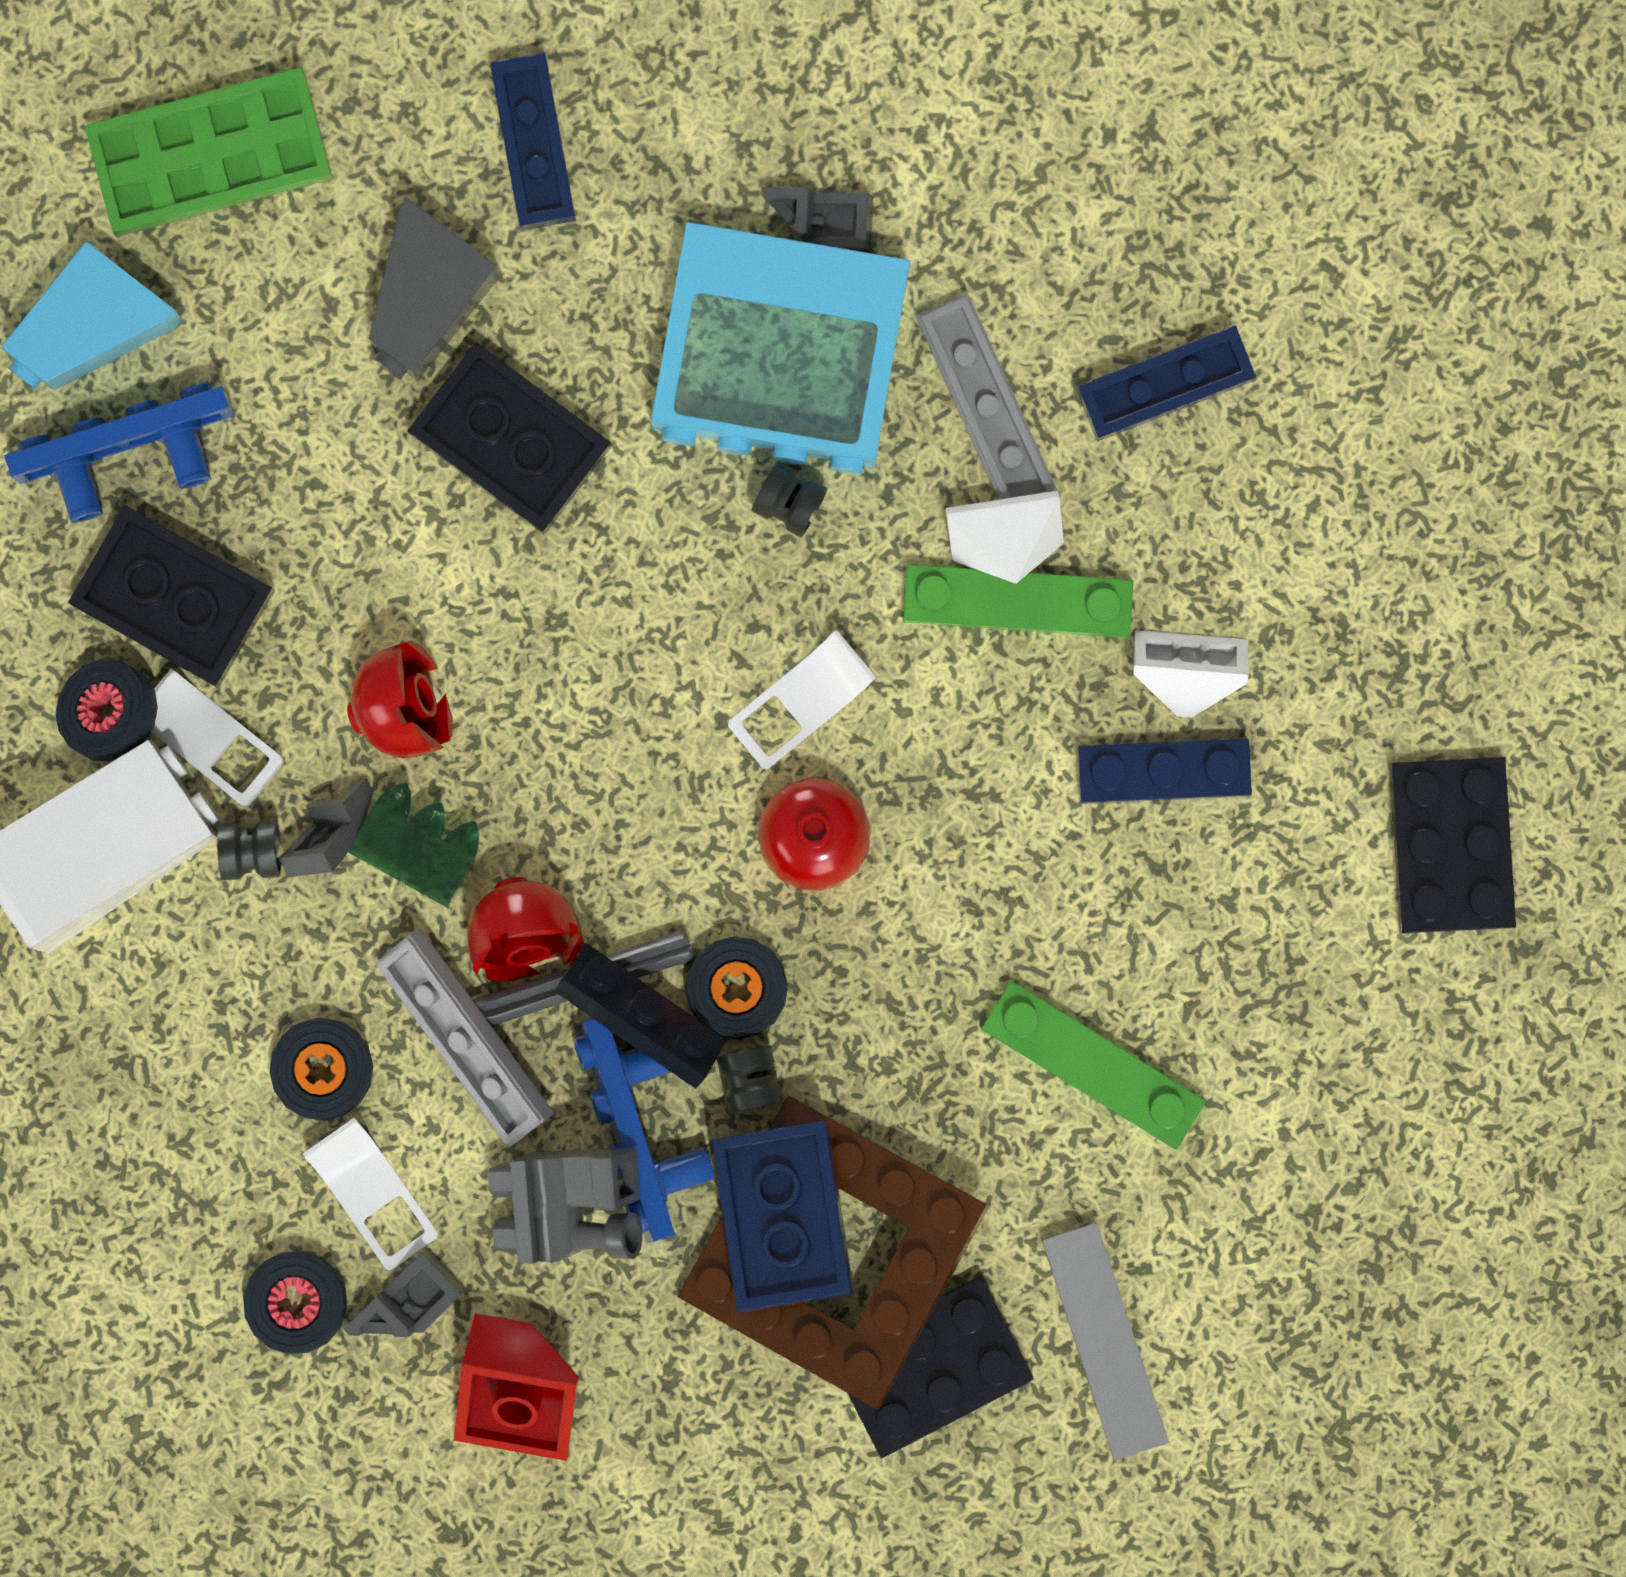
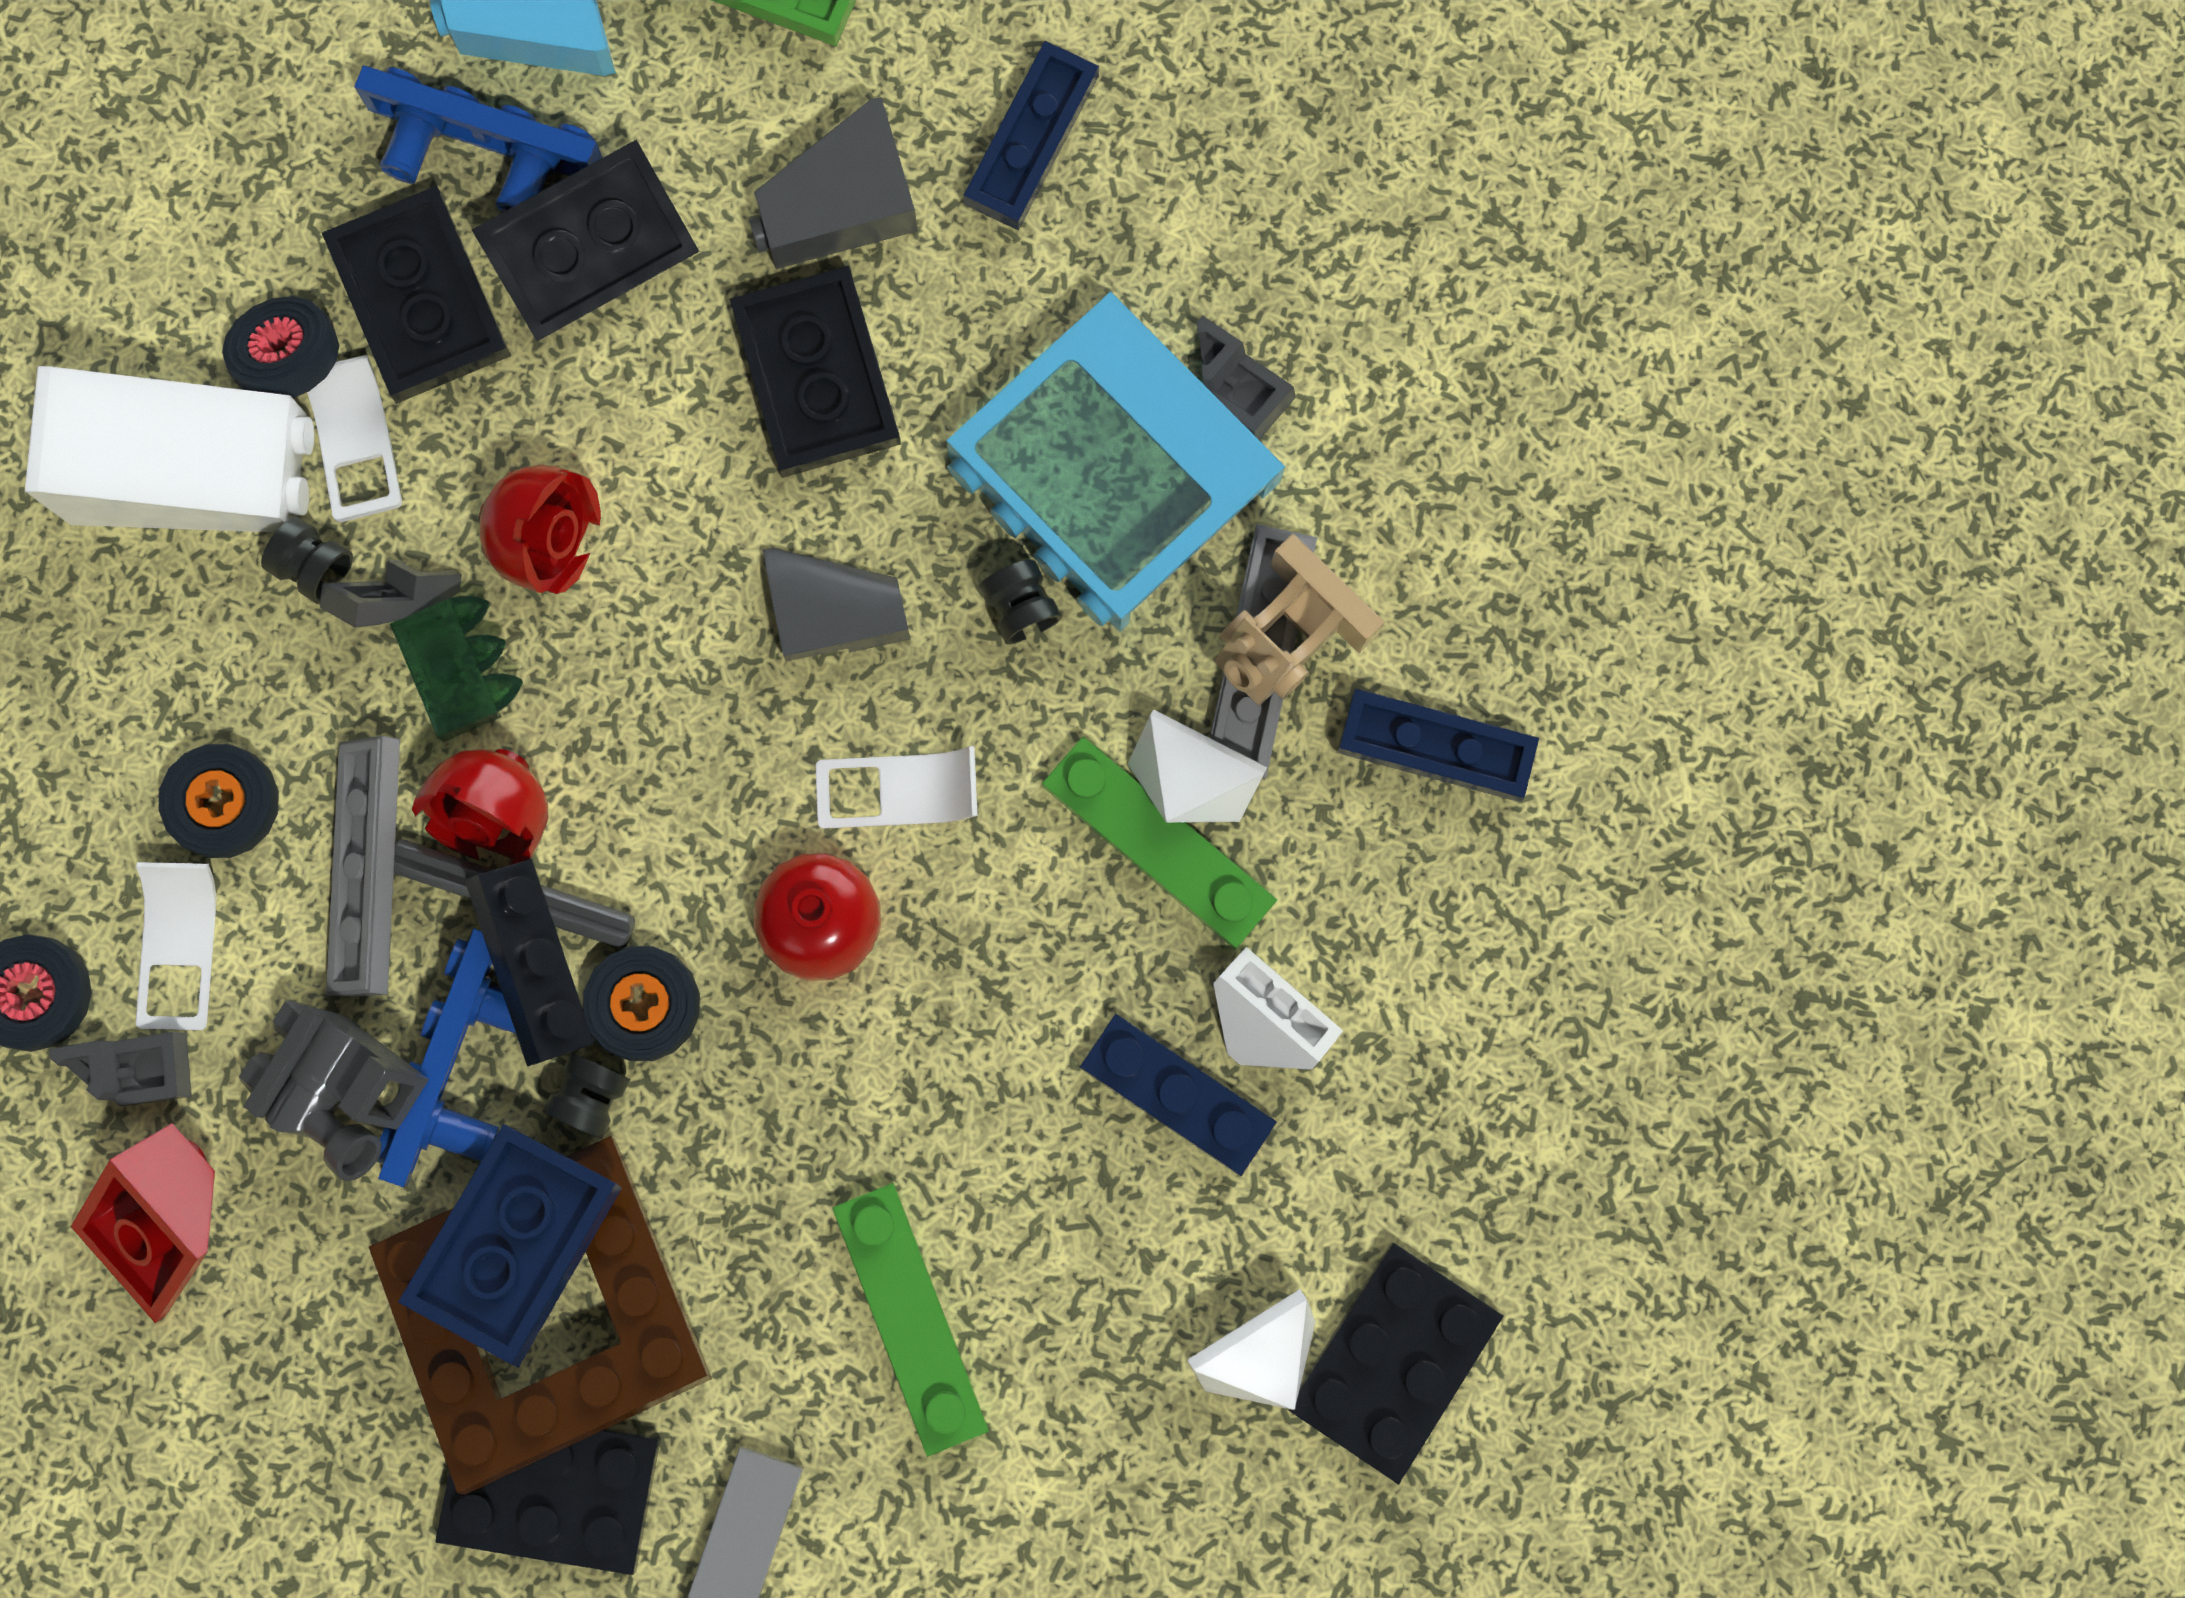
camera: 30 degrees right, 5 degrees down
(269, 465) = (585, 240): none -> black plate
(653, 602) = (832, 606): none -> dark grey slope
(1005, 346) = (1315, 604): none -> tan tile
(1358, 910) = (1262, 1357): none -> white slope

